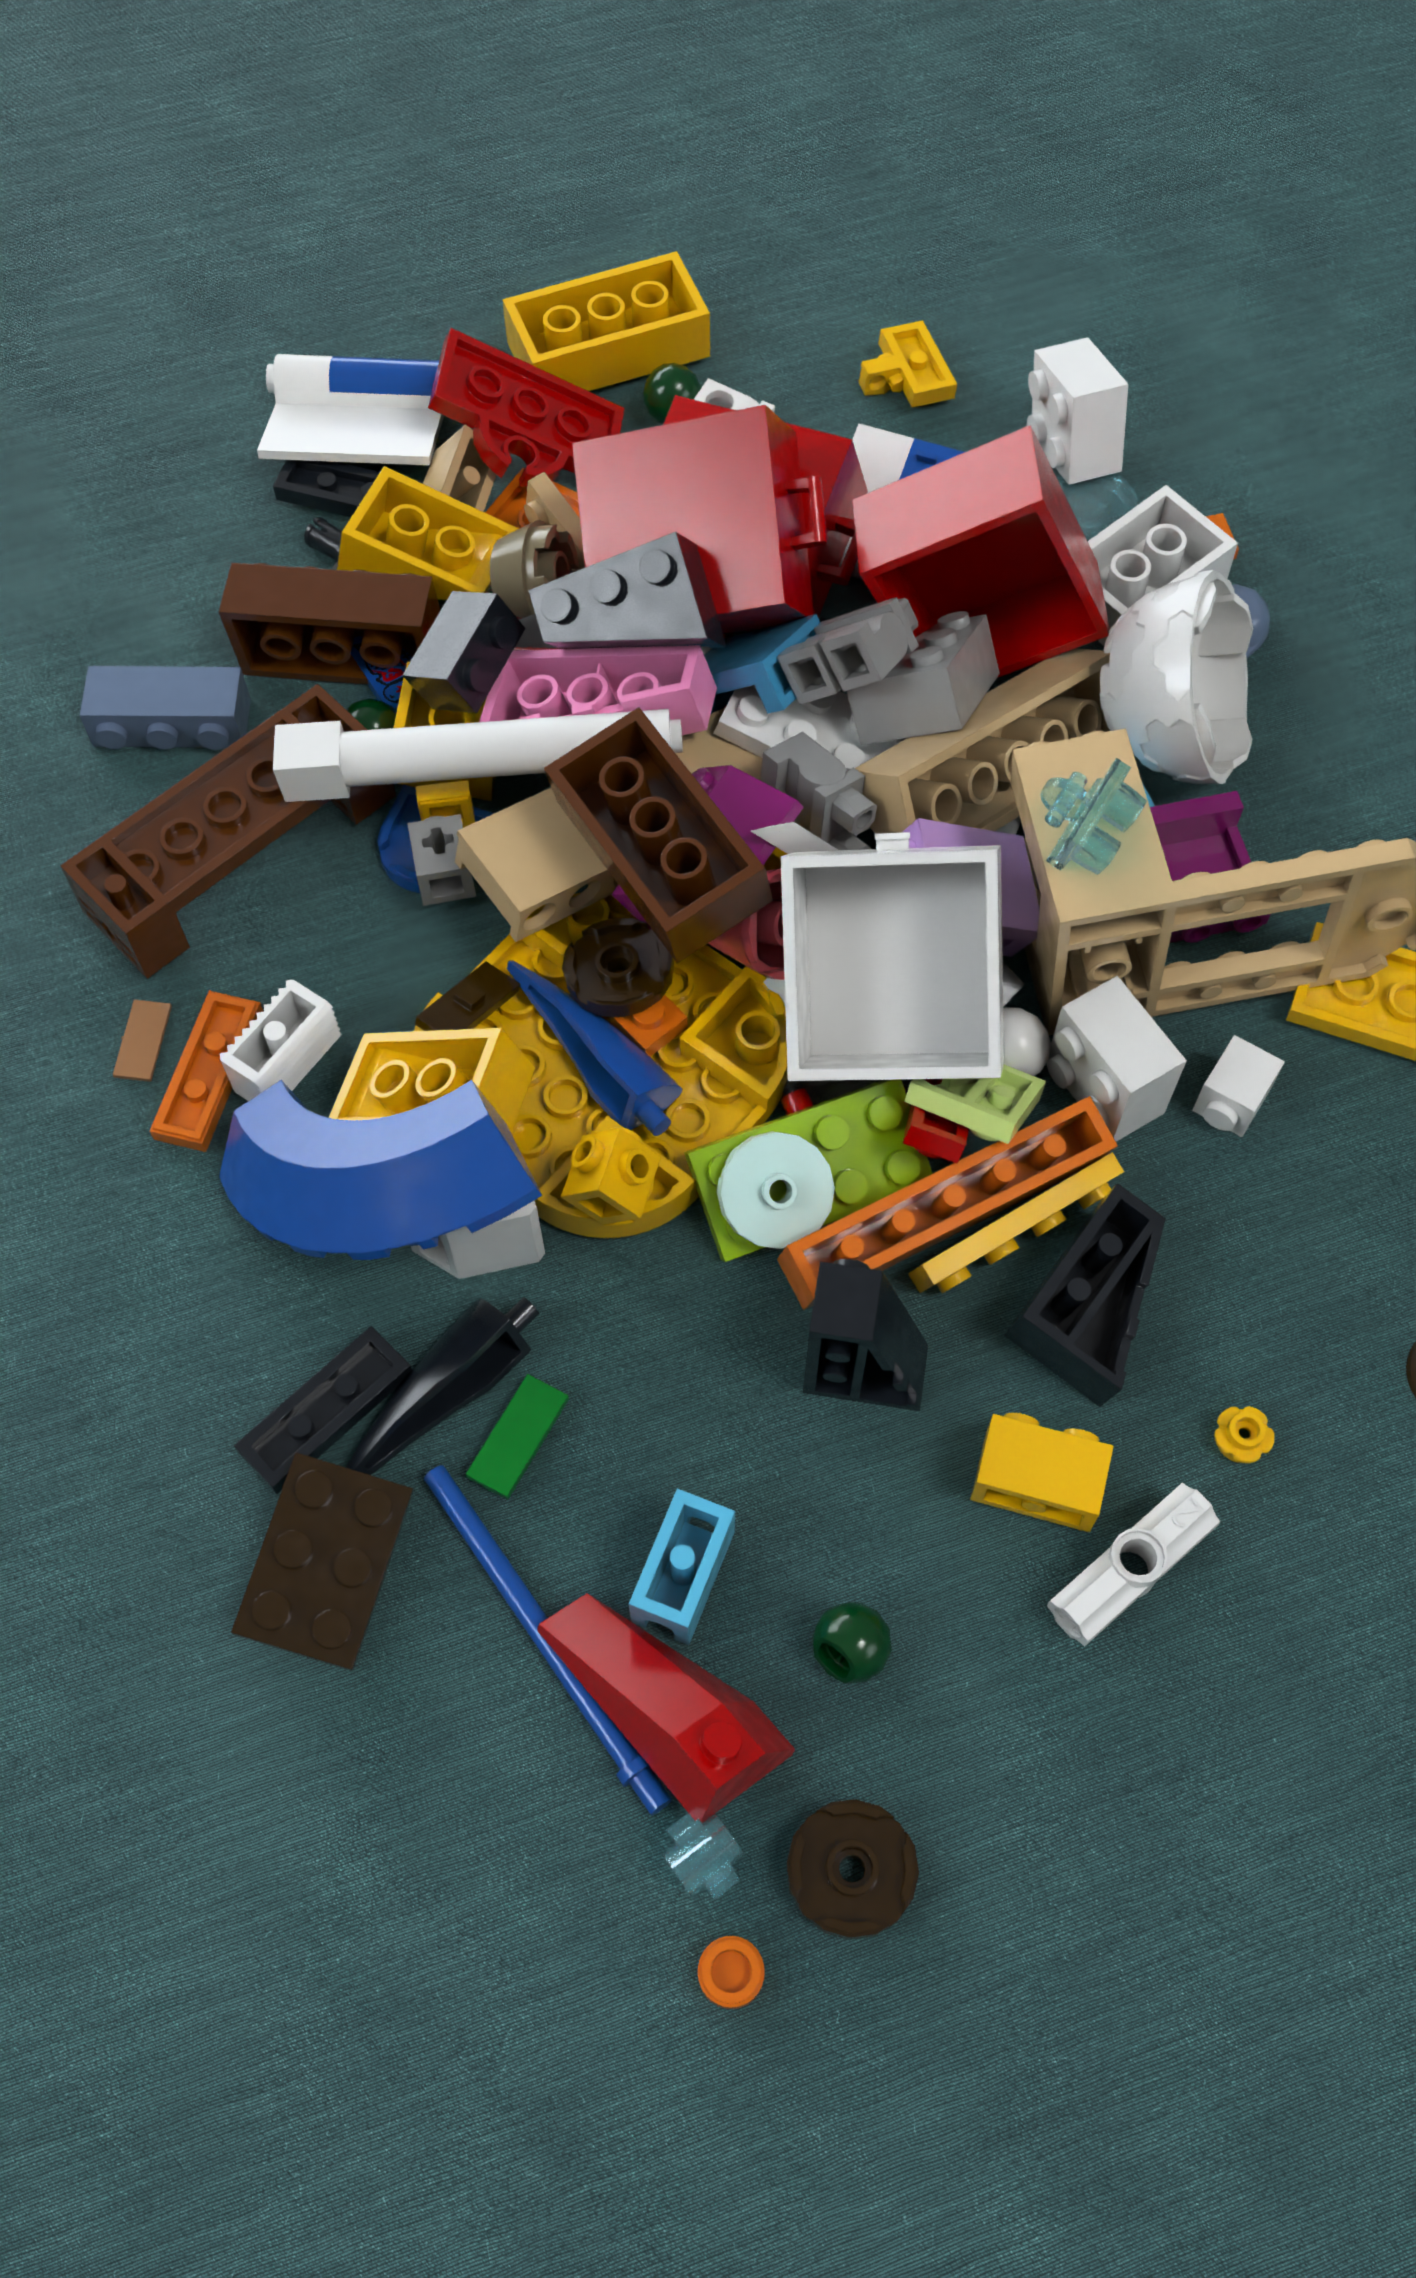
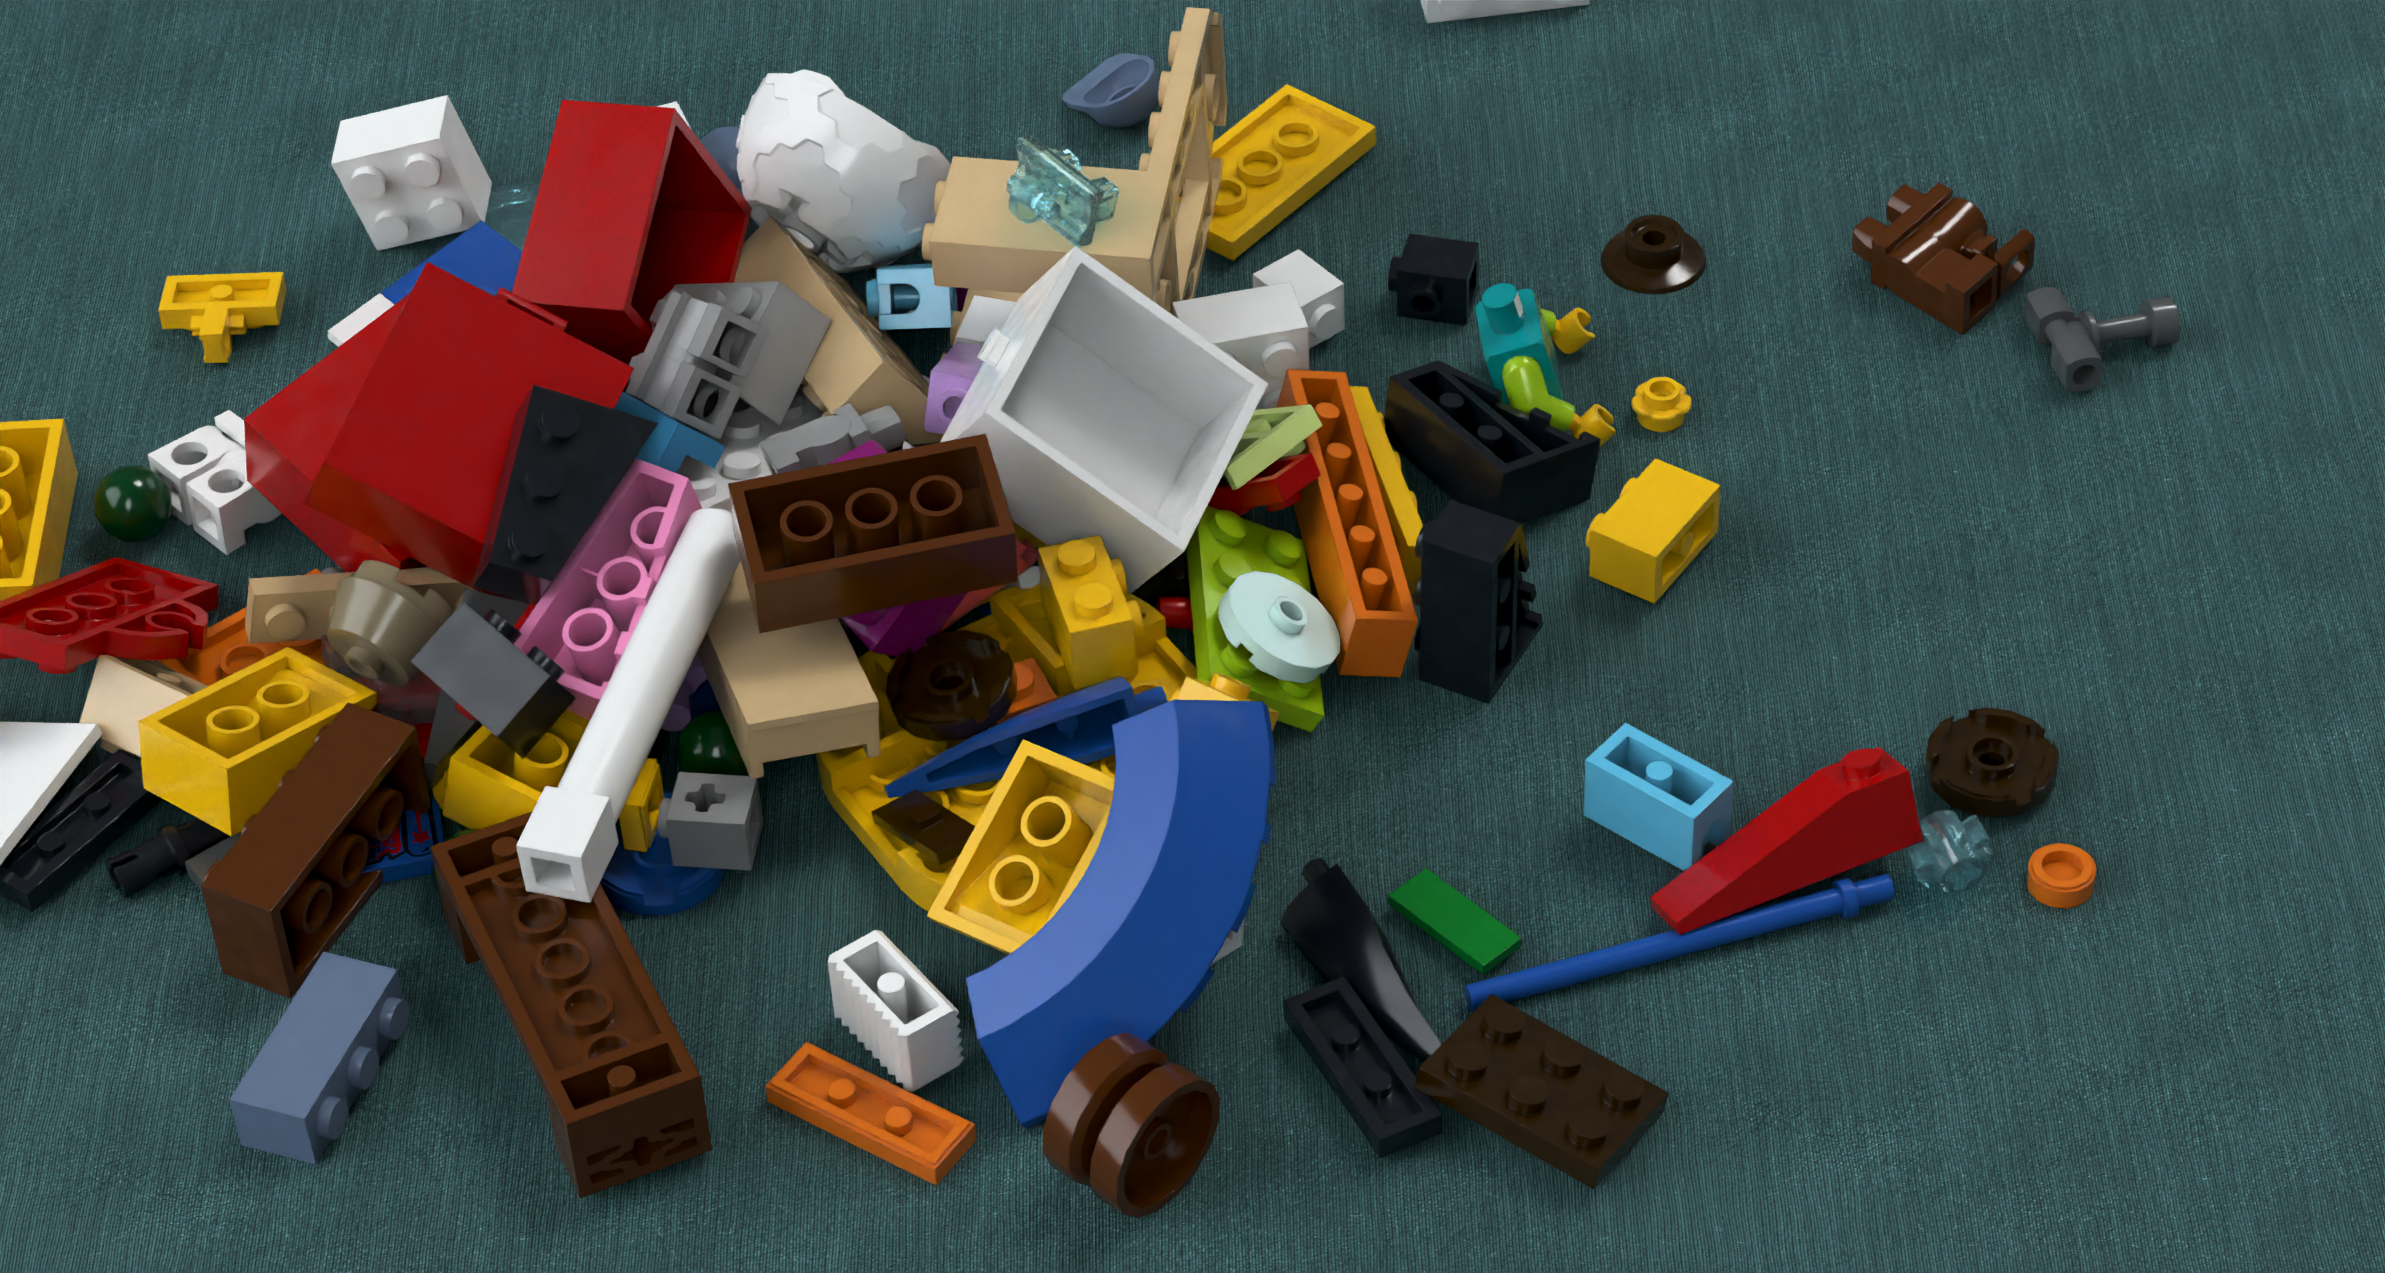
camera: 70 degrees left, 20 degrees down
(142, 1040) = (793, 1174): medium nougat window -> none
(179, 1249) = (1131, 1124): none -> reddish brown wheel
(721, 1034) = (1089, 611): none -> yellow brick
(852, 1642) = (1775, 703): dark green piece -> none
(1108, 1588) = (1765, 498): white piece -> none
(1221, 1295) = (1524, 360): none -> torso
(1320, 1190) = (1435, 279): none -> black brick

